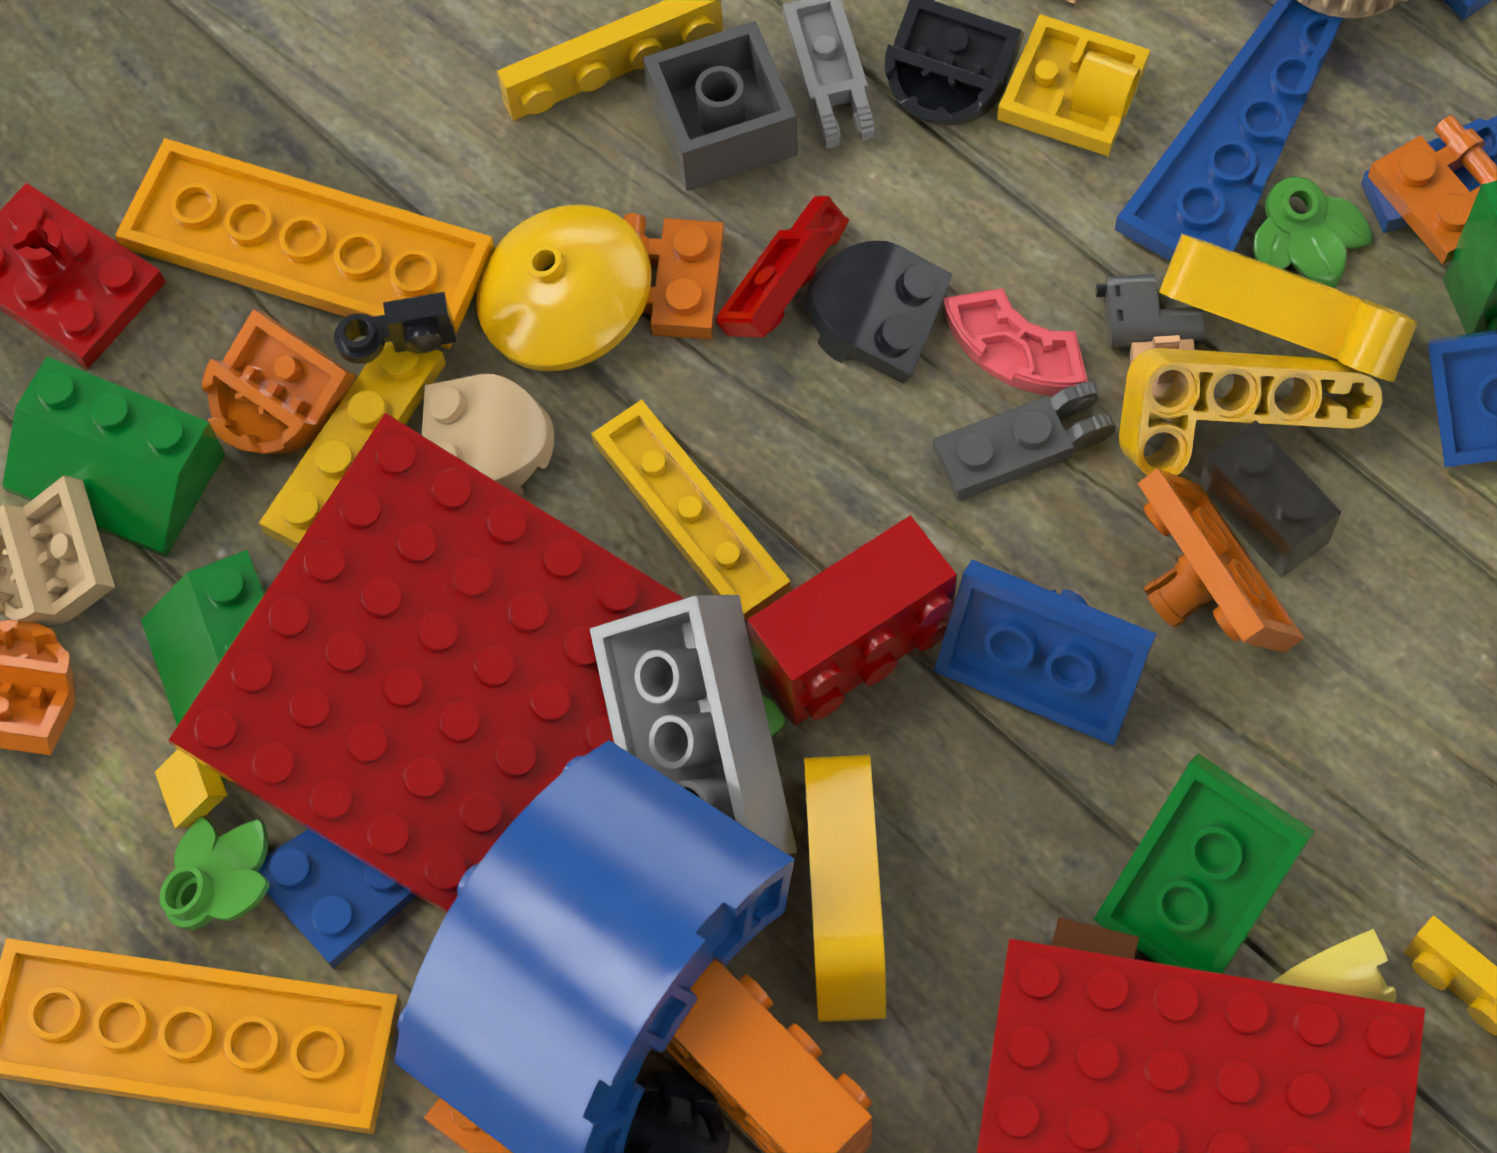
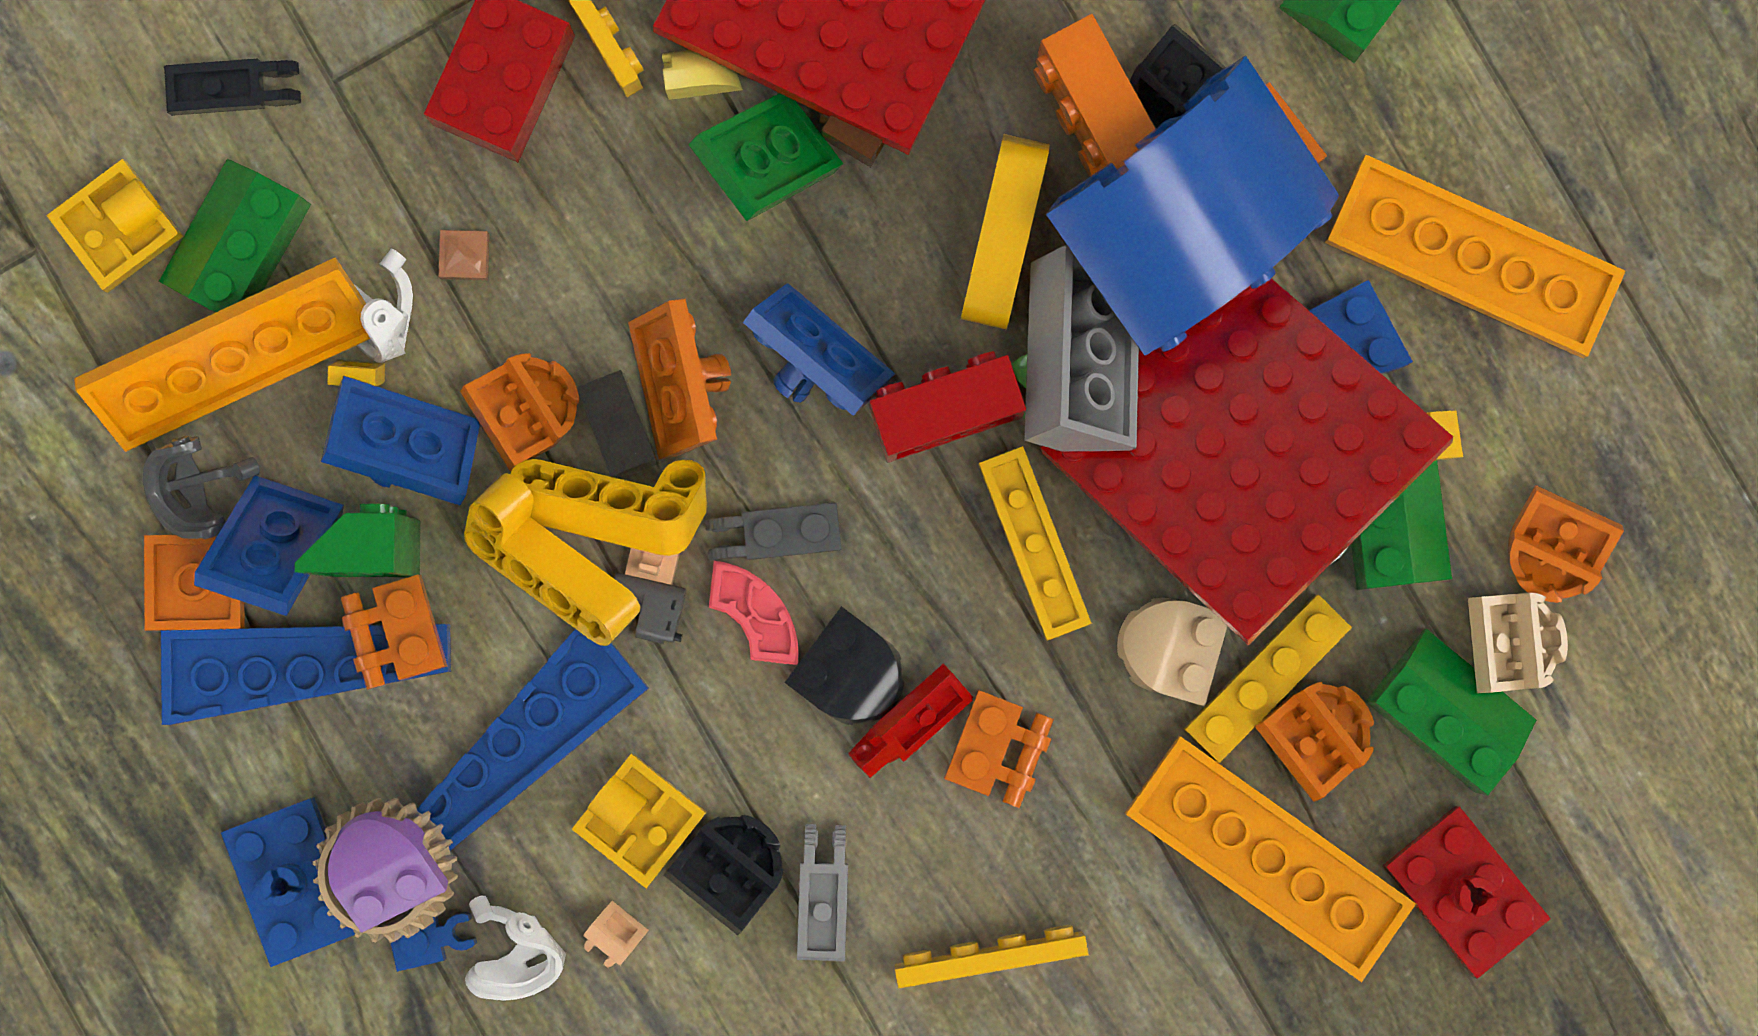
camera: 170 degrees left, 20 degrees up
(215, 874) = (1428, 363): bright green plate -> none
(410, 324) = (1202, 739): black plate -> none
(577, 305) = (1053, 752): yellow dish -> none
(721, 105) = (921, 874): dark grey brick -> none
(1312, 240) = (503, 632): bright green plate -> none
(1398, 492) = (523, 406): none -> orange slope

